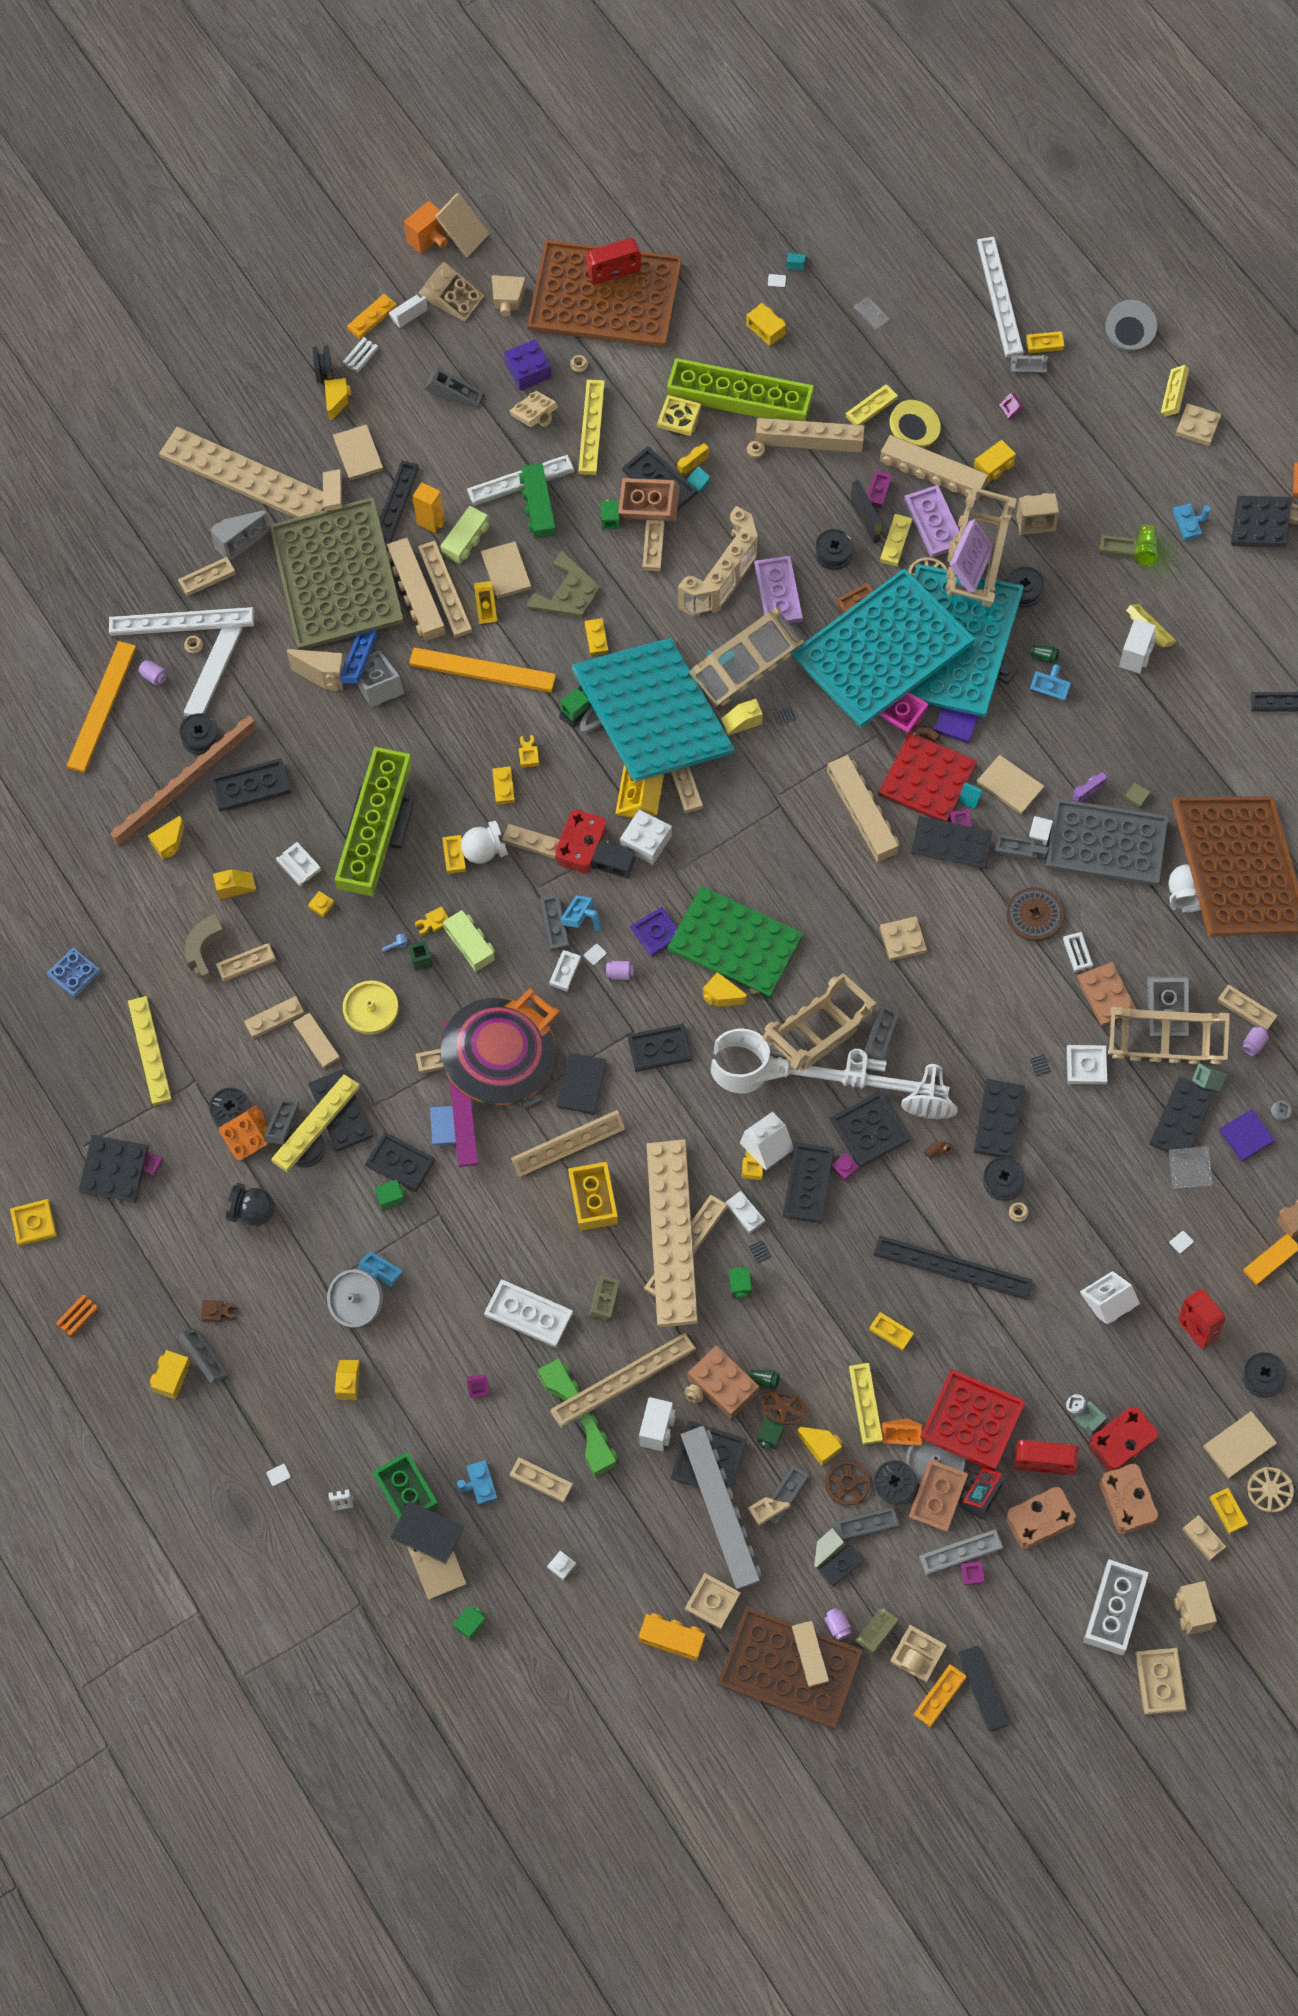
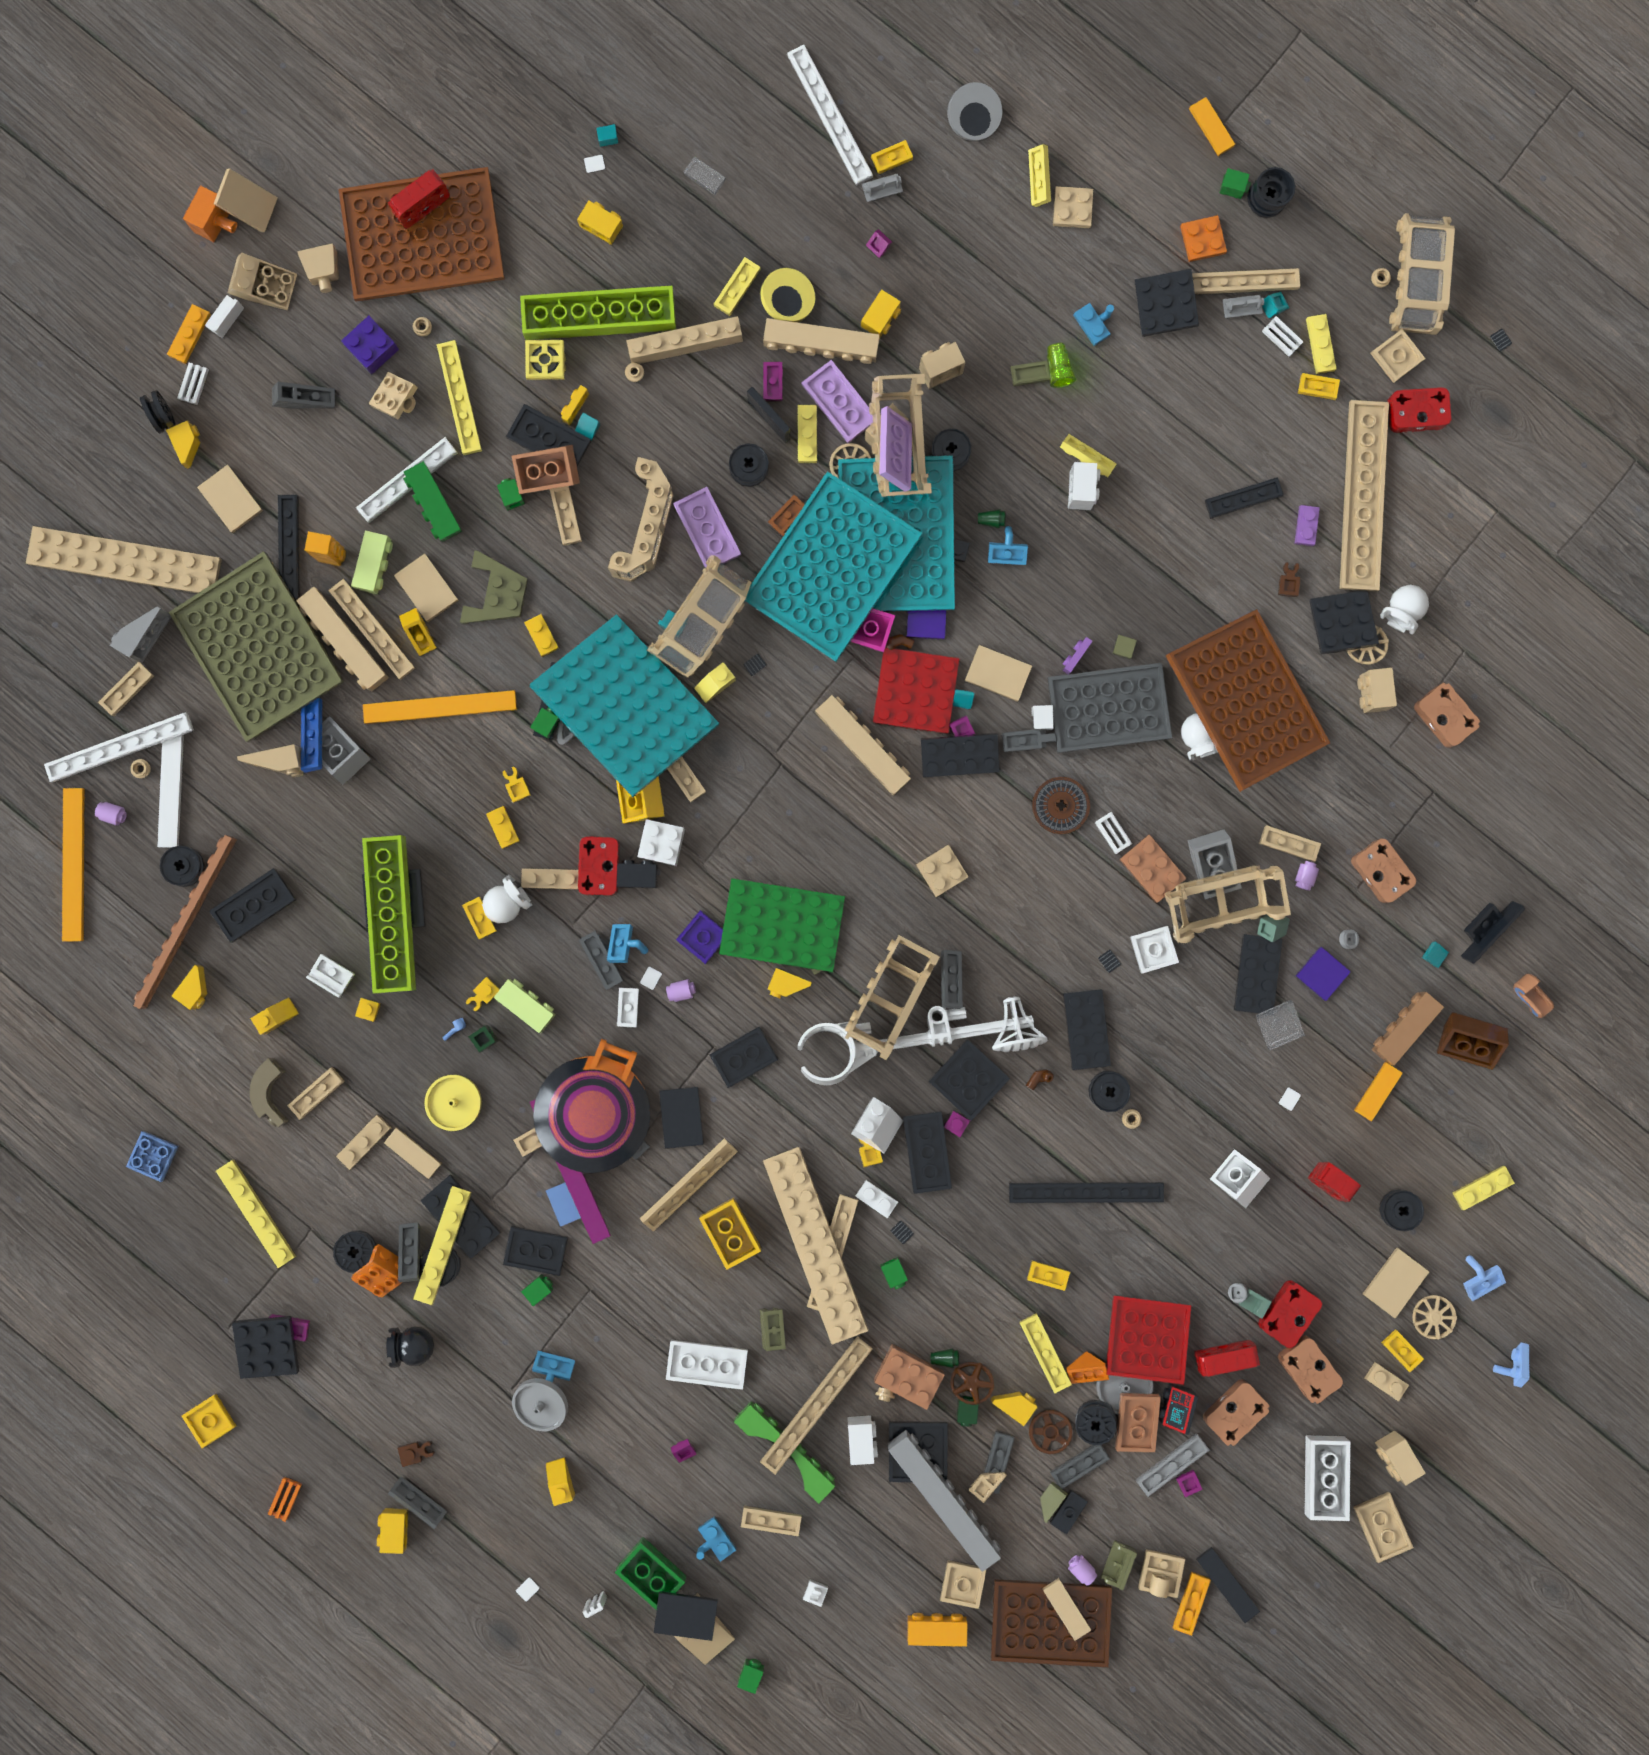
camera: 20 degrees left, 20 degrees up
(332, 490) = (219, 553): tan tile -> none

